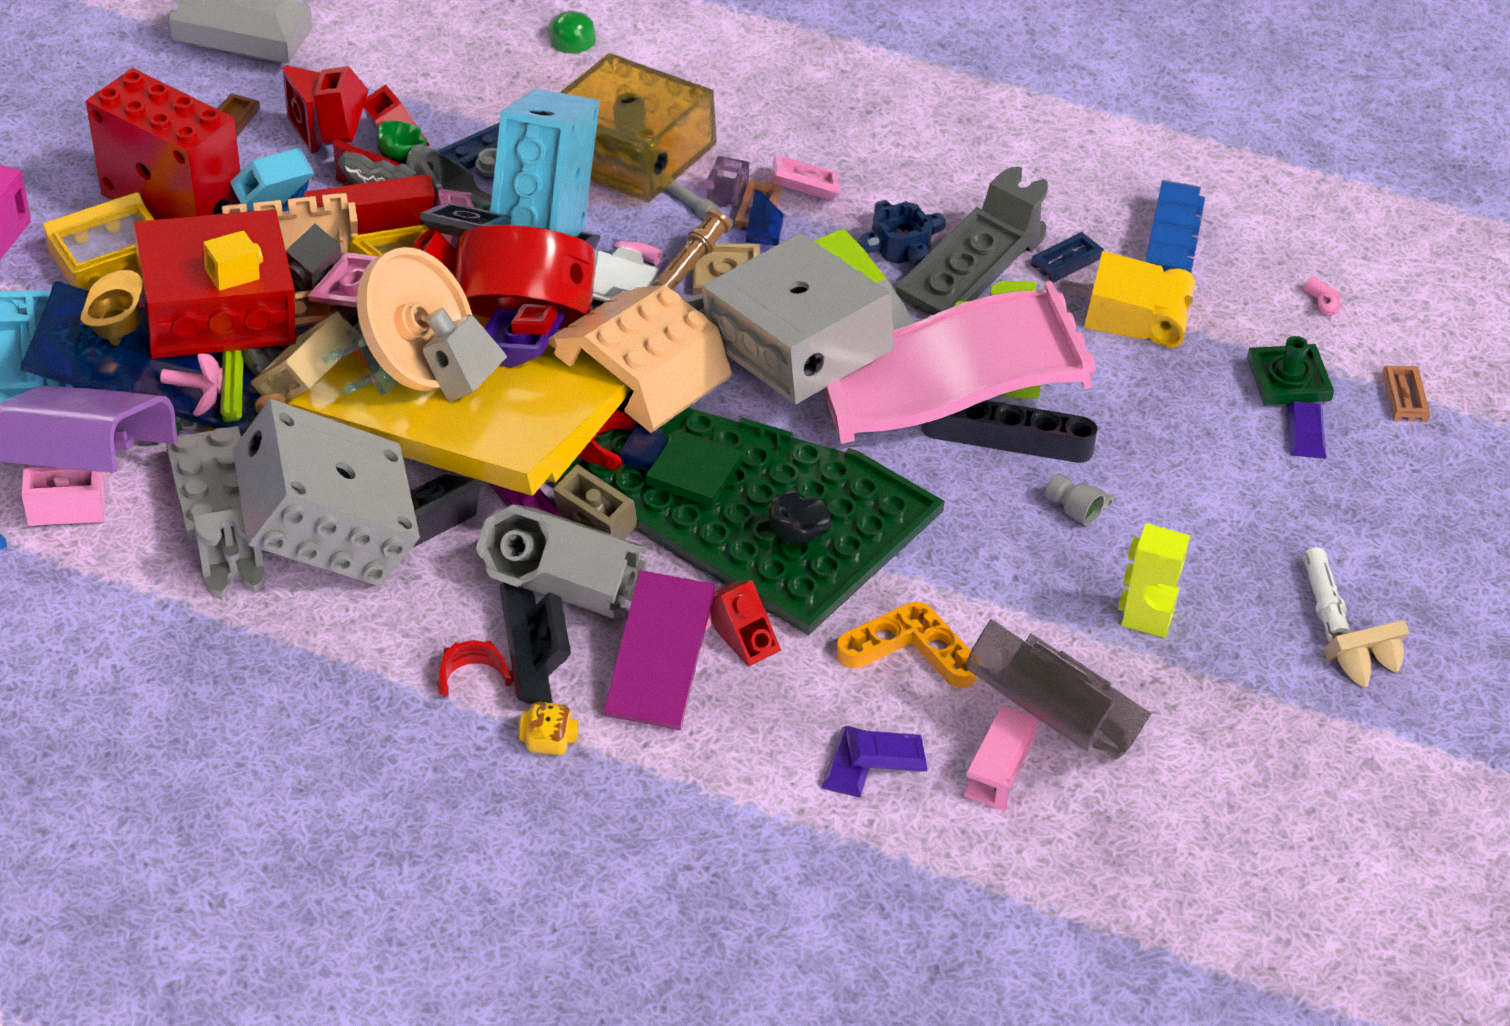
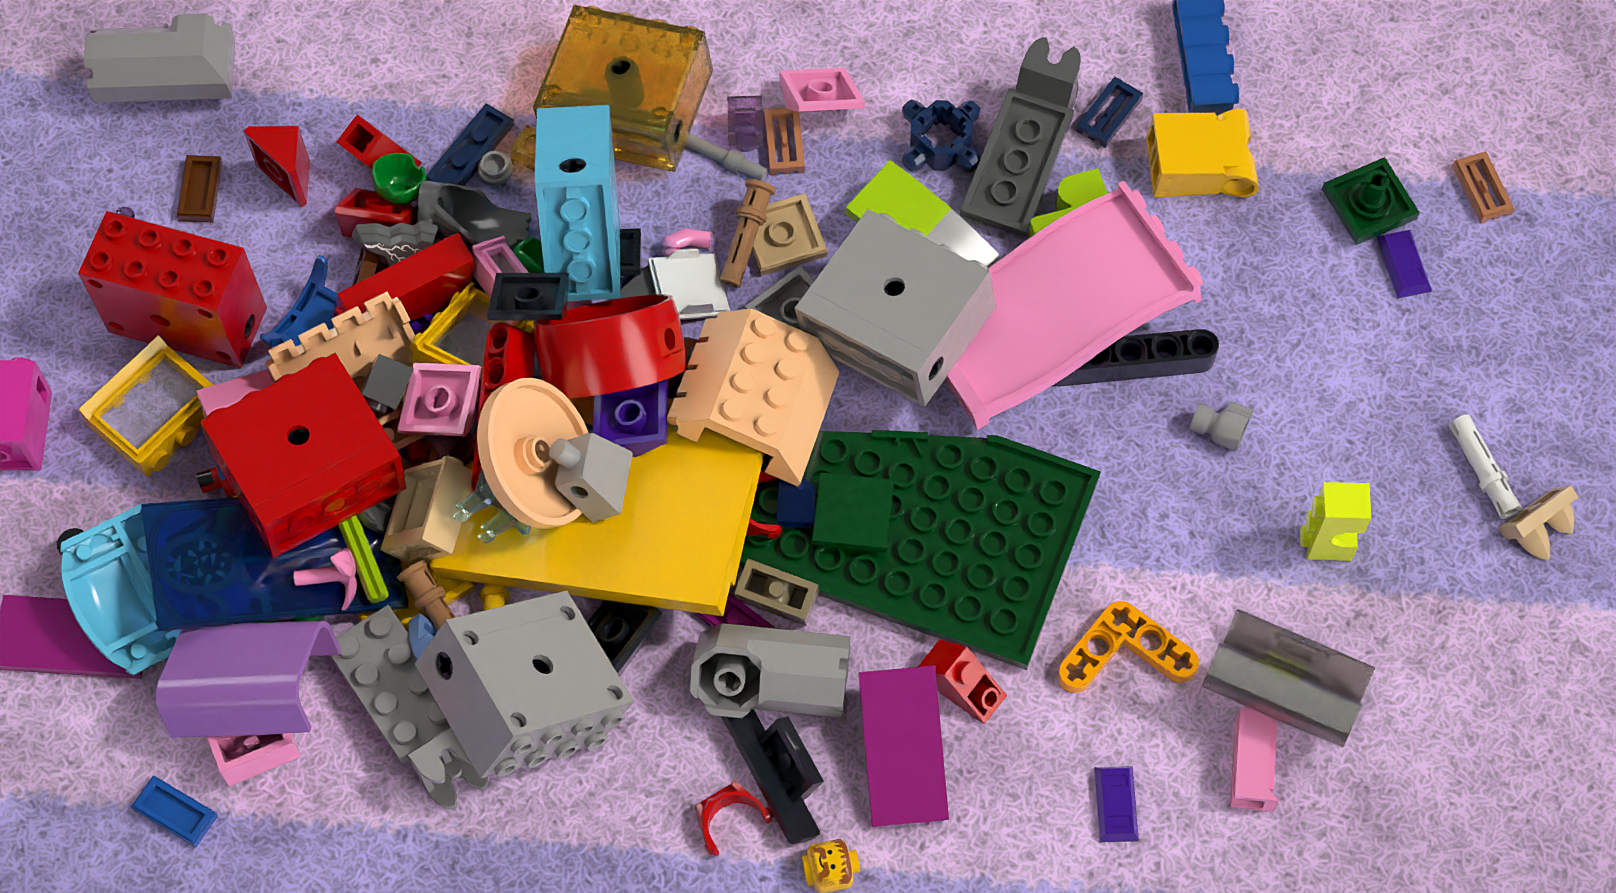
camera: 15 degrees left, 20 degrees up
(113, 305) = (217, 520): pearl gold piece -> none
(232, 260) = (328, 448): yellow brick -> none
(272, 178) = (294, 283): medium azure slope -> none
(339, 104) = (322, 160): red slope -> none
(534, 319) = (643, 402): red tile -> none
(764, 221) = (802, 165): clear blue tile -> none
(798, 519) = (979, 548): black hair -> none
(886, 750) = (1148, 785): dark purple tile -> none
(1327, 296) = (1374, 86): bright pink arm -> none

